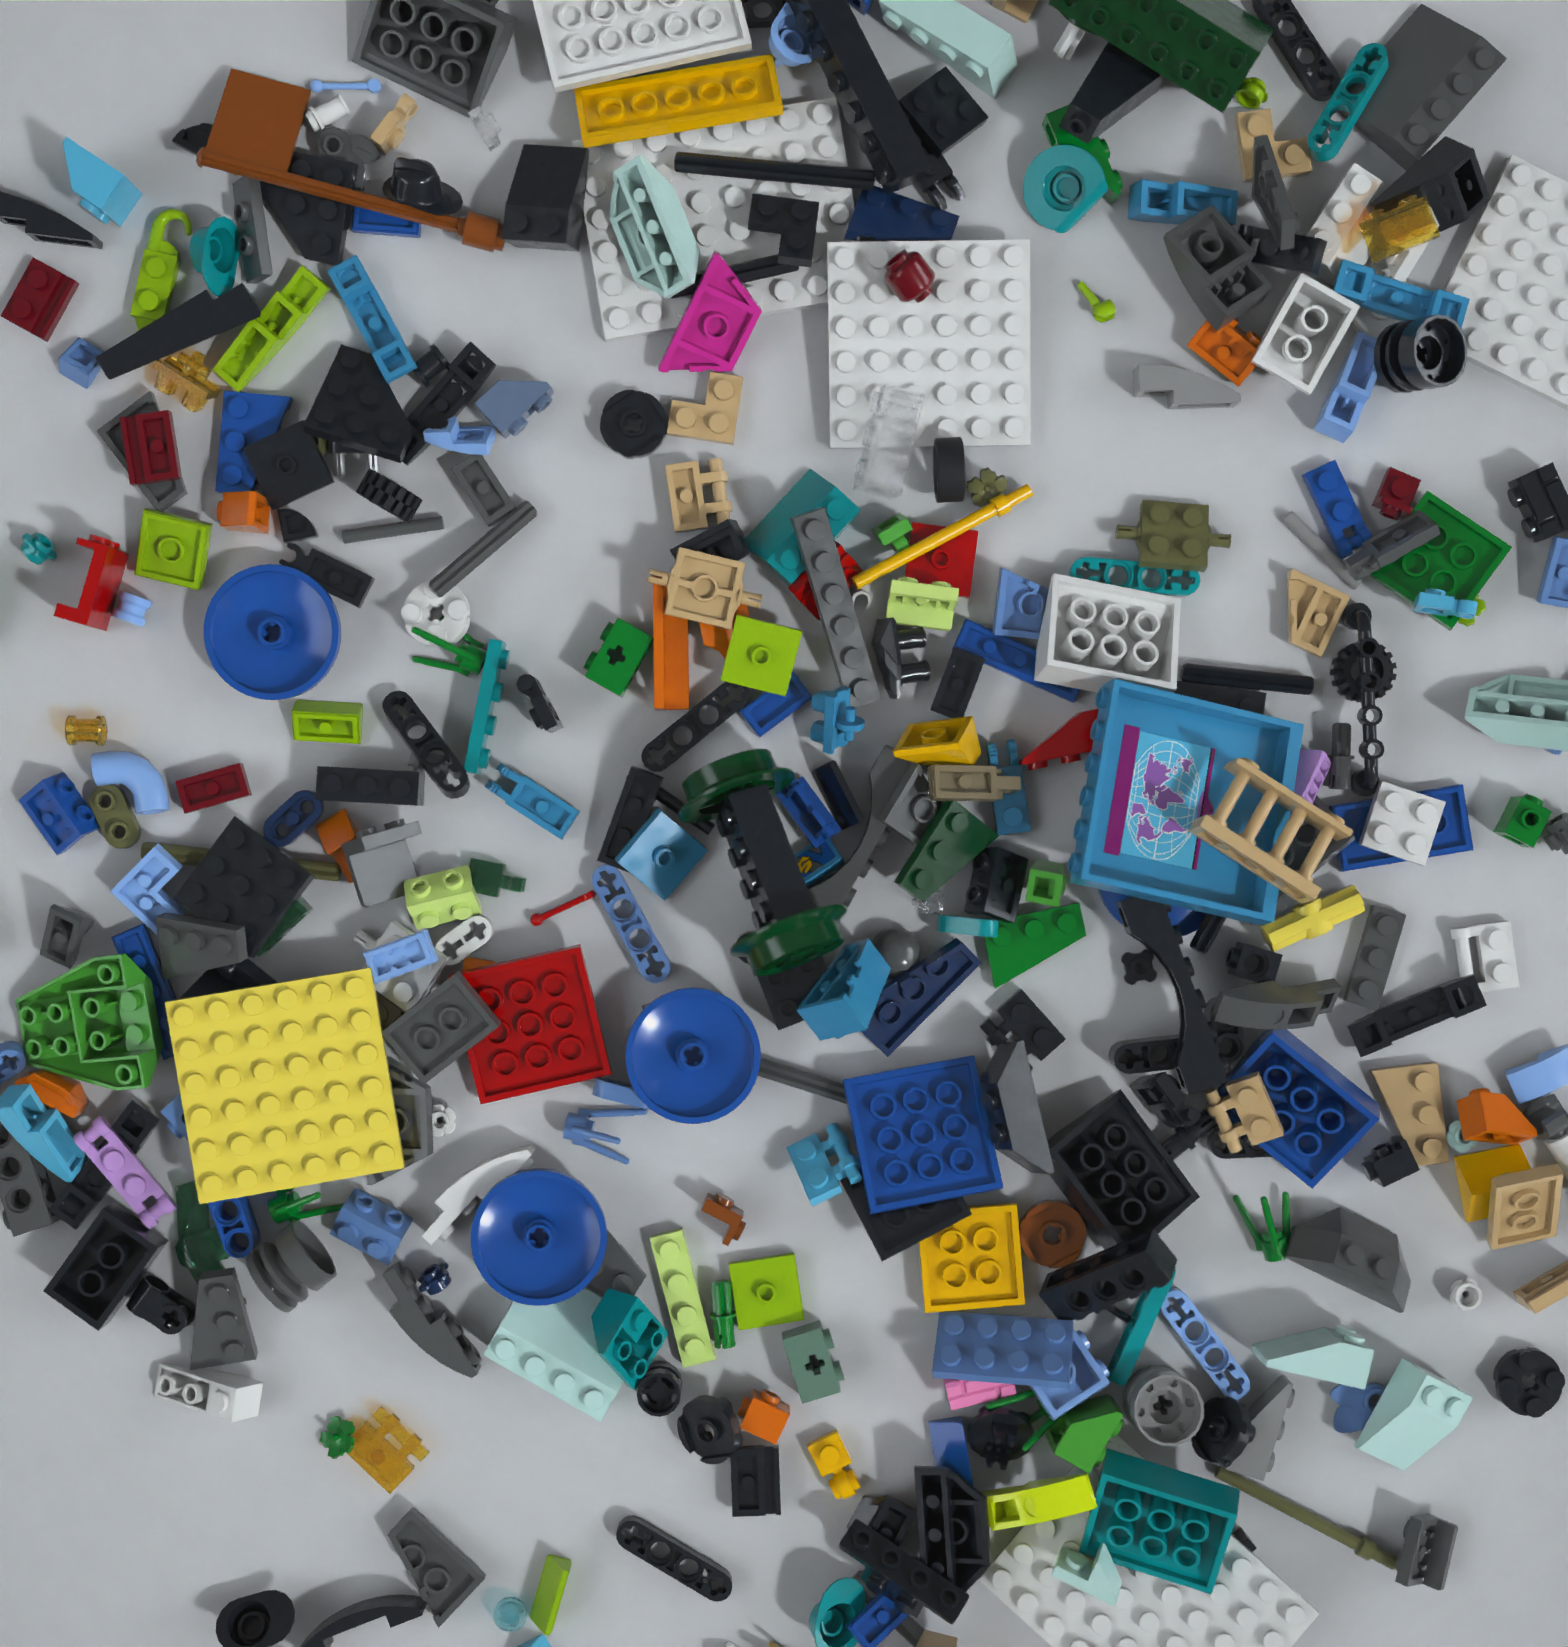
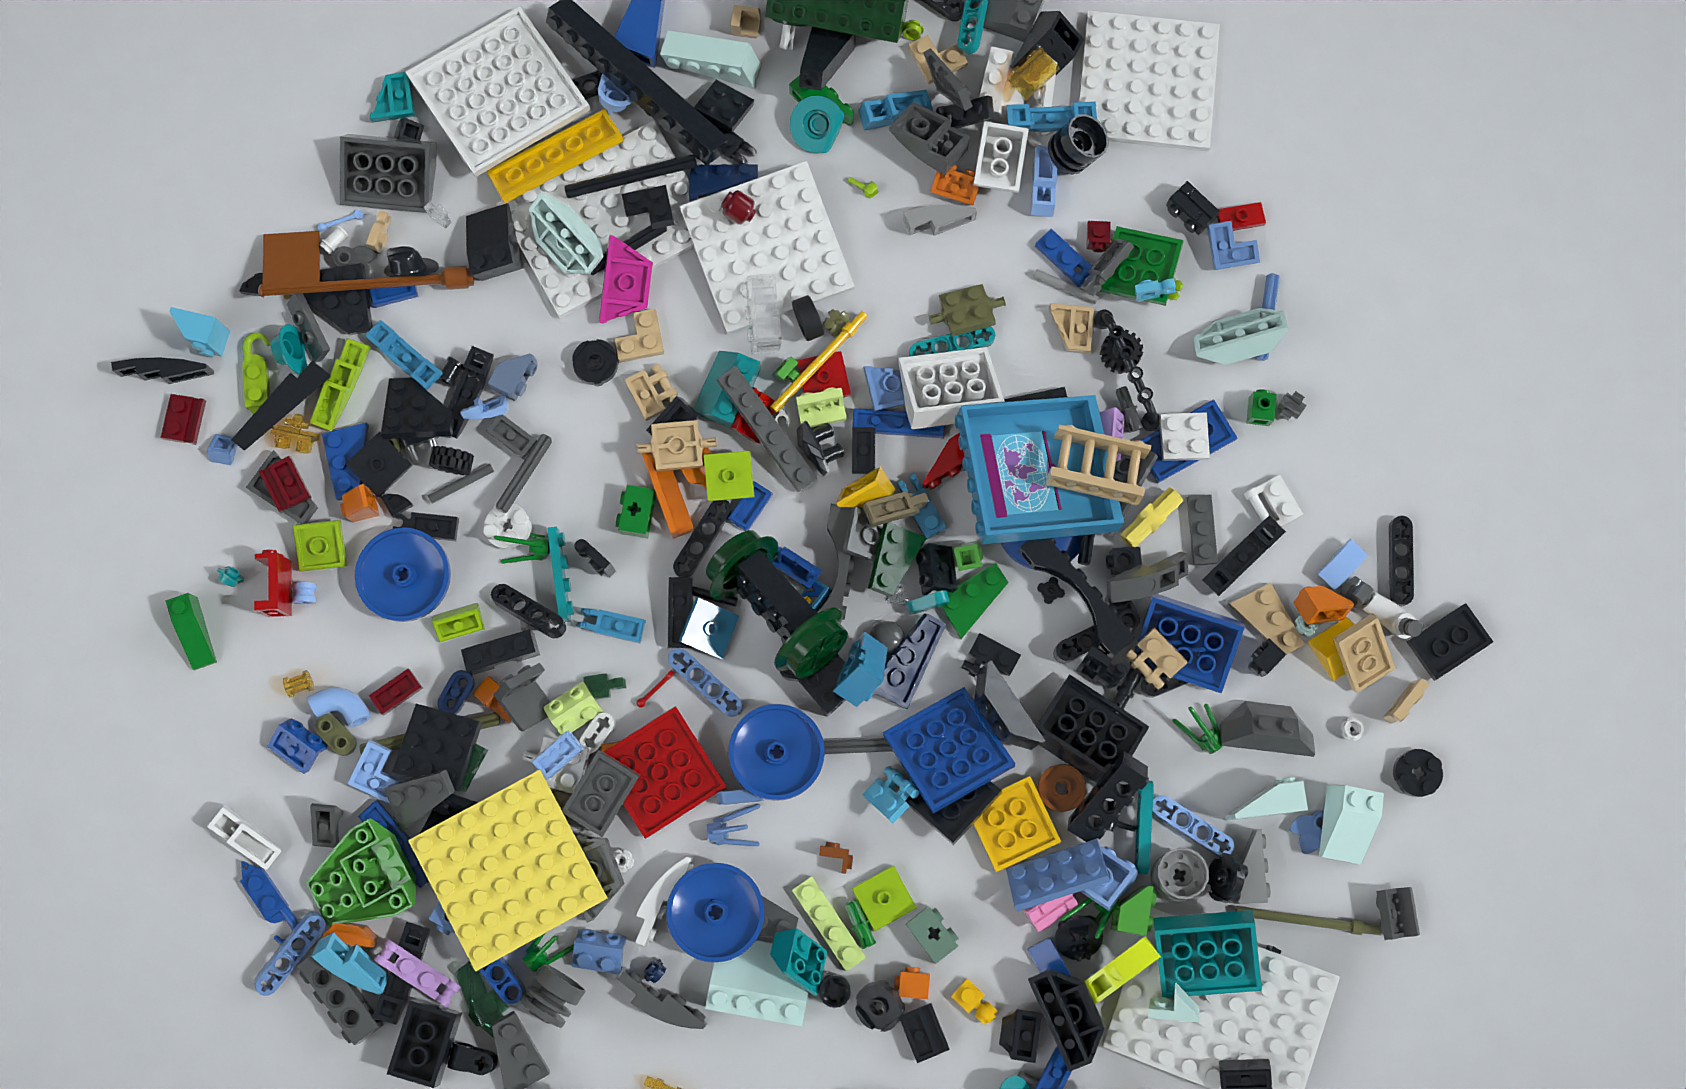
camera: 25 degrees left, 10 degrees down
(837, 795) = (811, 549): black slope -> none
(838, 721) = (794, 500): dark azure hips -> none
(901, 1576) = (1047, 1059): black bracket -> none
(1247, 679) = (1049, 382): black axle -> none

